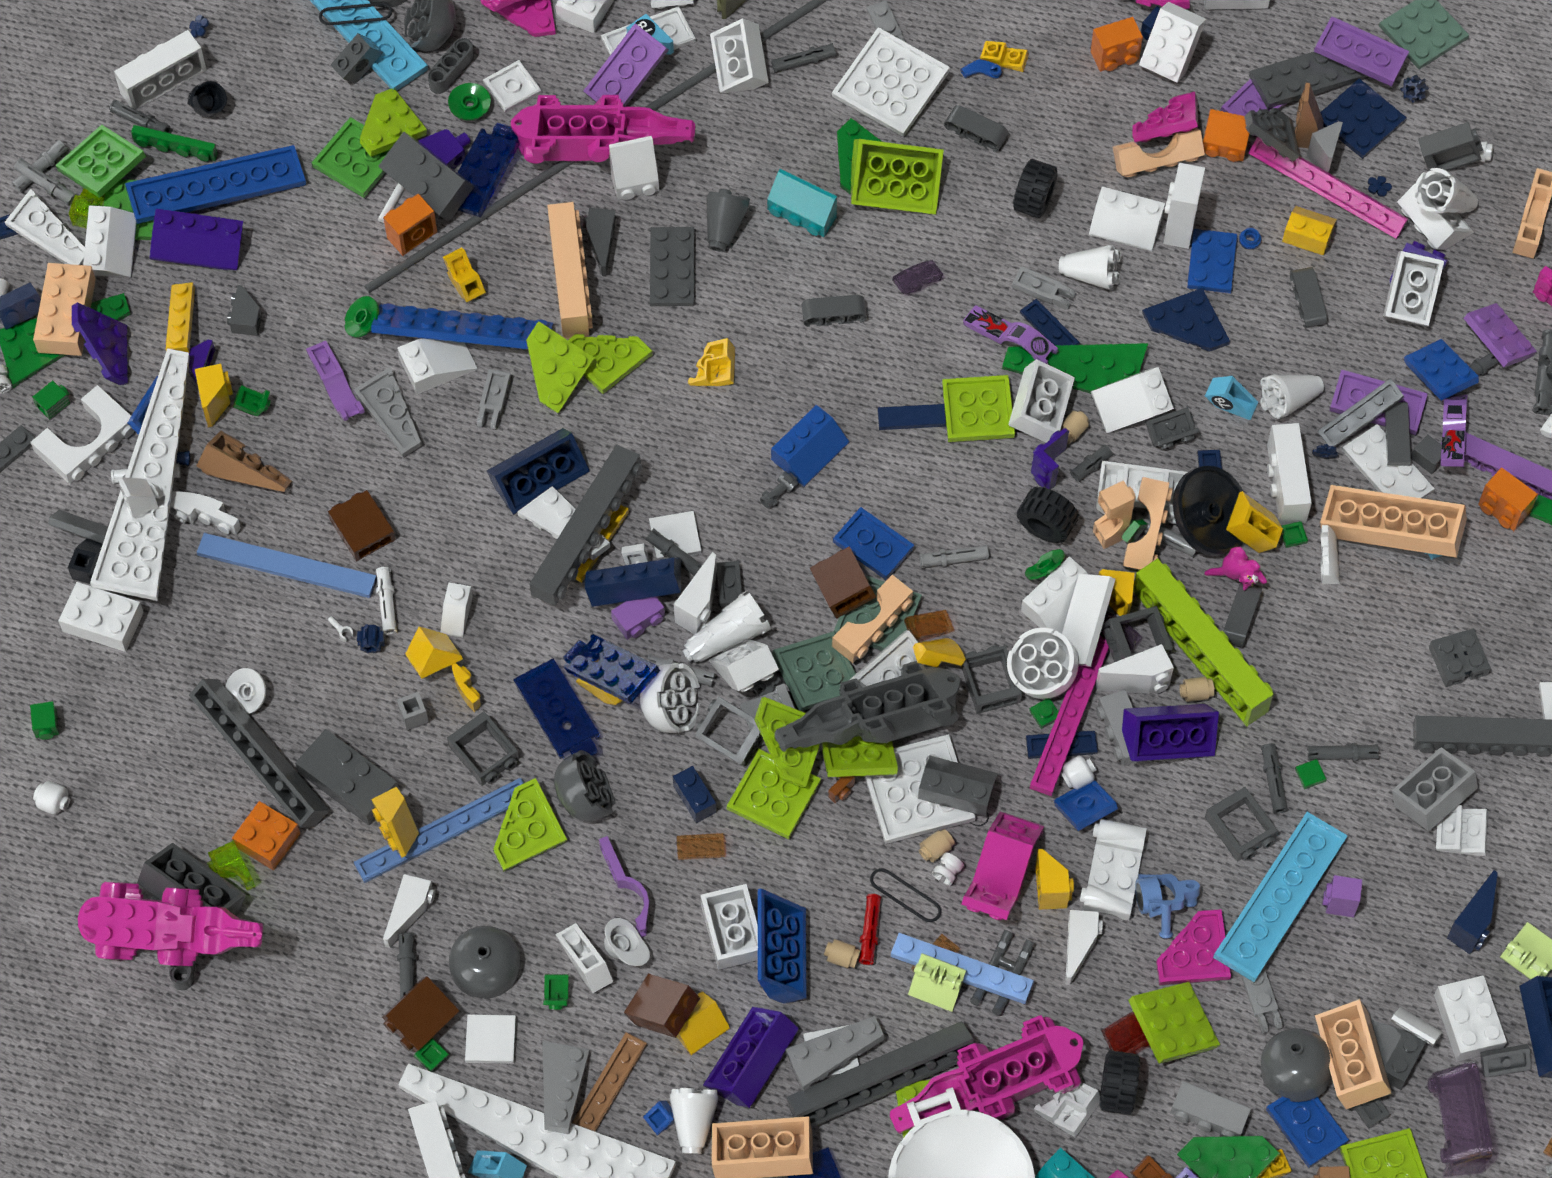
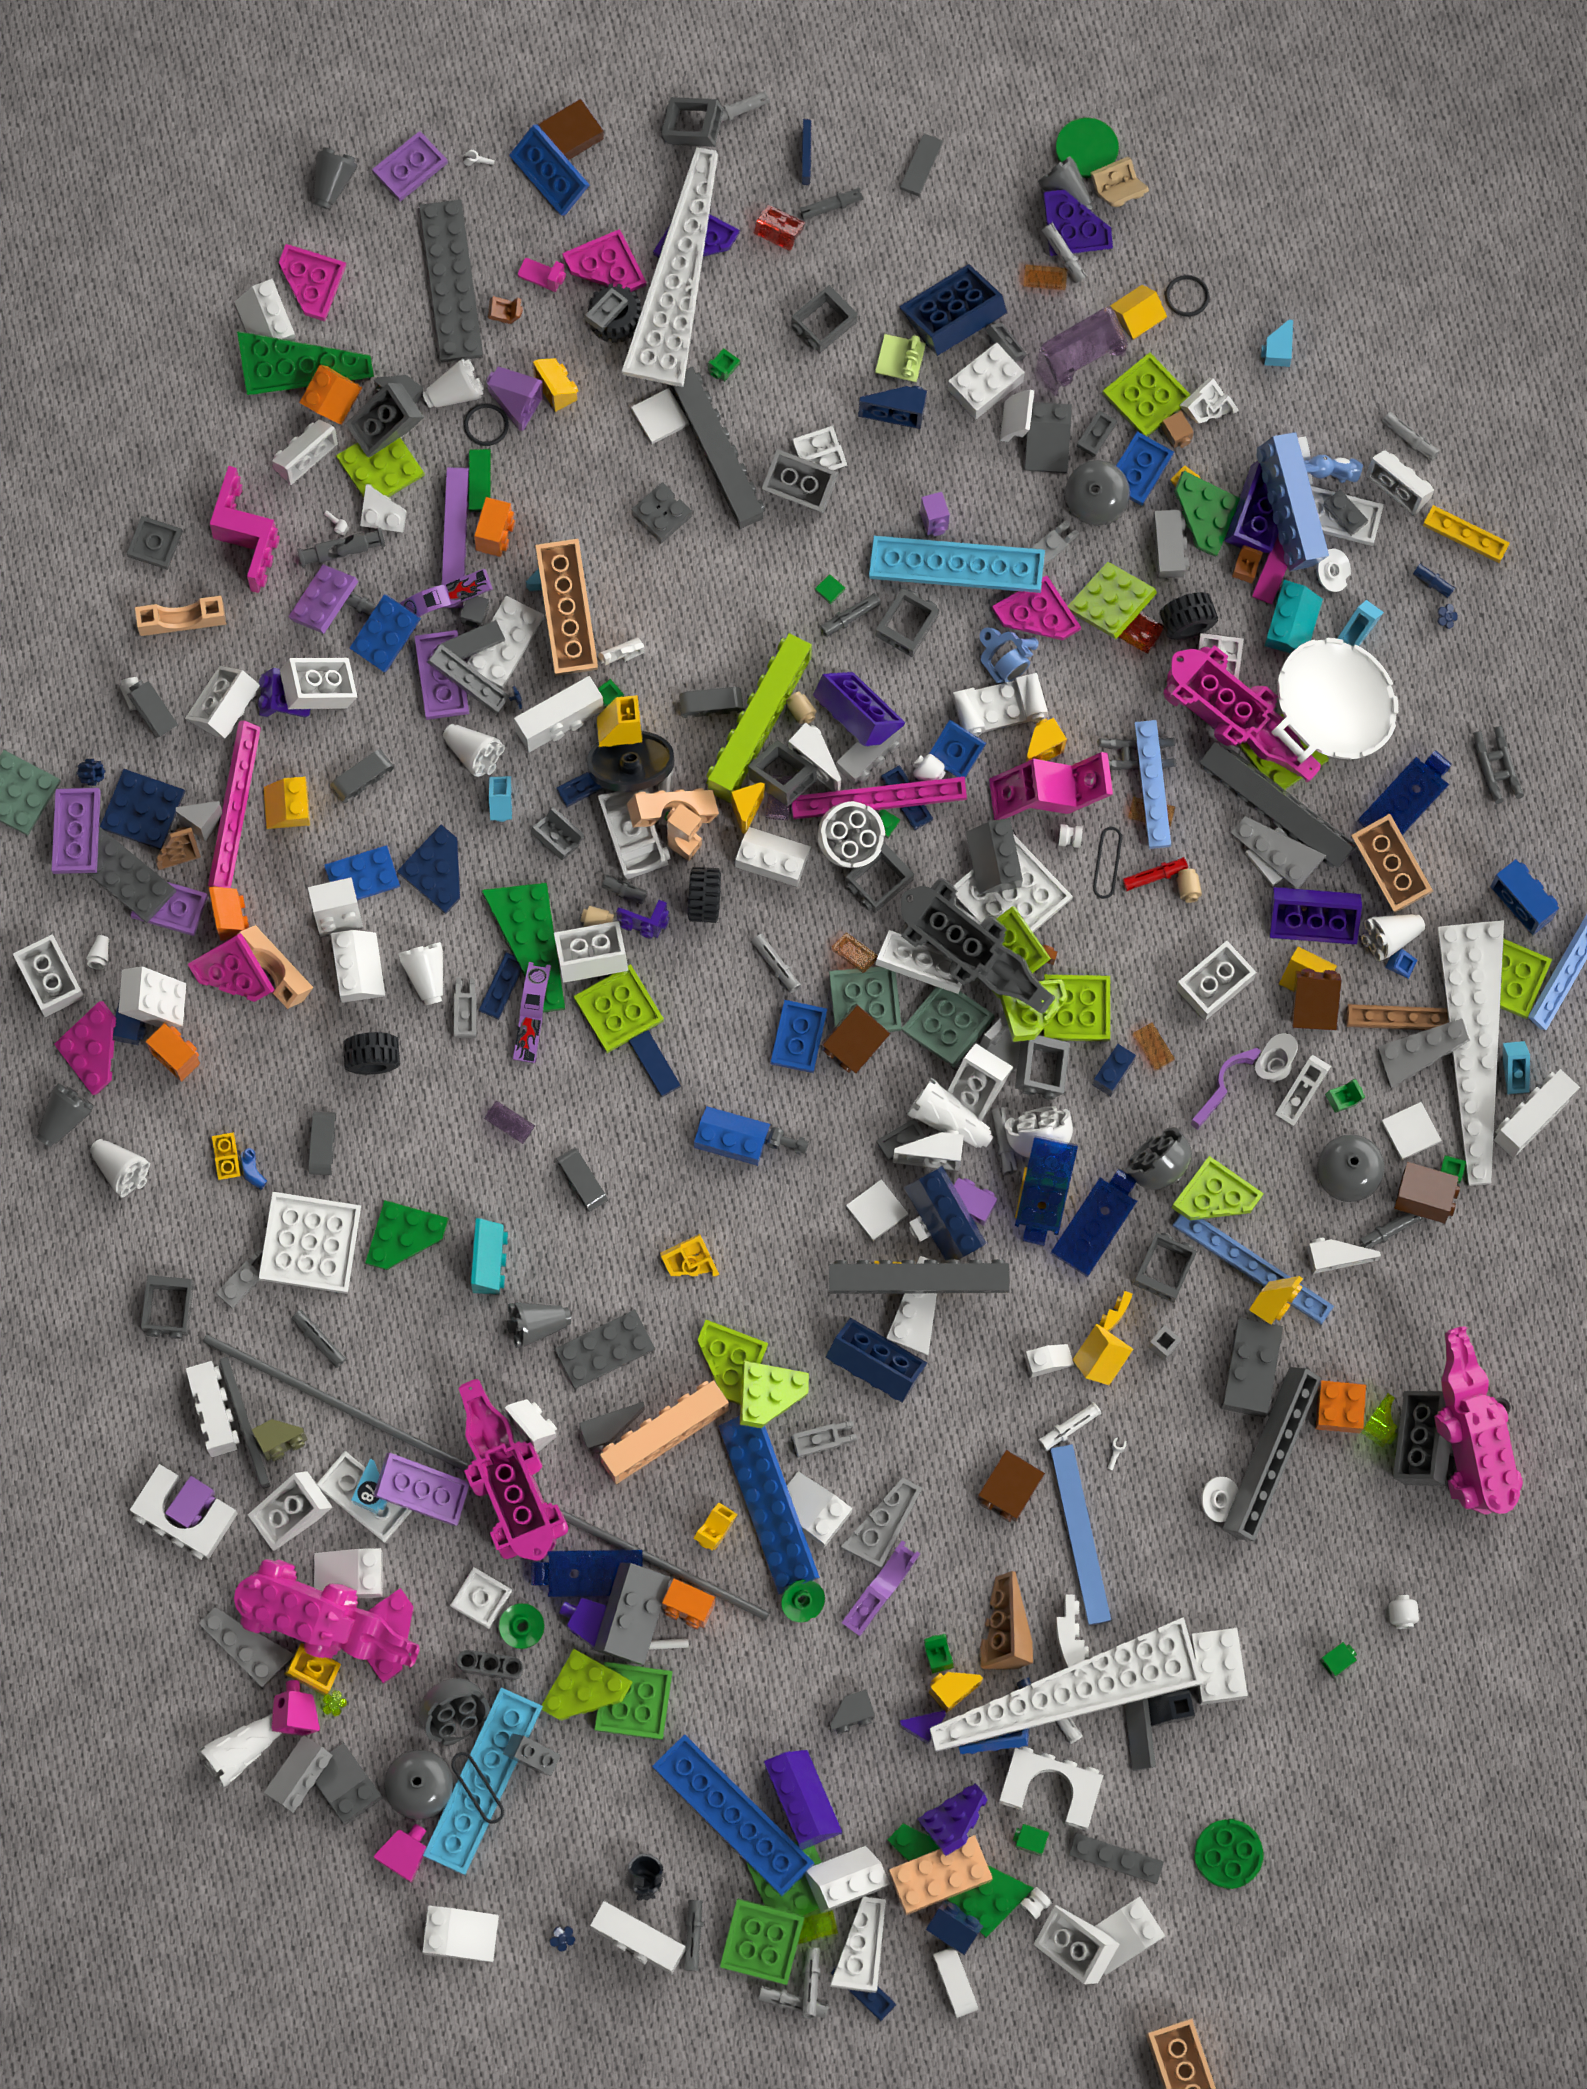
camera: 120 degrees left, 10 degrees up
(138, 495) = (1102, 1680): white slope -> none
(180, 317) = (890, 1766): yellow plate -> none
(181, 145) = (709, 1893): green plate -> none
(370, 638) = (1114, 1418): dark blue gear -> none
(669, 549) = (898, 1204): dark grey pin -> none
(739, 57) = (352, 1394): white slope -> none
(781, 948) = (1216, 926): blue slope -> none
(854, 639) = (854, 987): light nougat arch -> none
(895, 176) = (414, 1187): lime slope -> none
(935, 651) = (880, 927): yellow slope -> none
(936, 845) = (1054, 854): tan brick -> none
(936, 982) = (1175, 796): yellowish green hinge -> none
(1046, 565) = (741, 883): green dish -> none
(1082, 935) = (1074, 703): white slope -> none
(1087, 614) = (787, 818): white tile -> none
(1132, 399) = (547, 876): white slope -> none
(1238, 567) = (670, 719): dark pink animal -> none
(1239, 32) = (98, 954): none -> white cone
(1253, 233) = (320, 846): blue plate -> none
(1274, 130) = (208, 868): dark grey plate -> none
(1343, 752) = (794, 563): dark grey pin -> none
(1356, 1059) = (1075, 444): light nougat brick -> none
(1378, 185) = (209, 765): dark blue plant -> none
(1442, 193) = (216, 688): white cone -> none

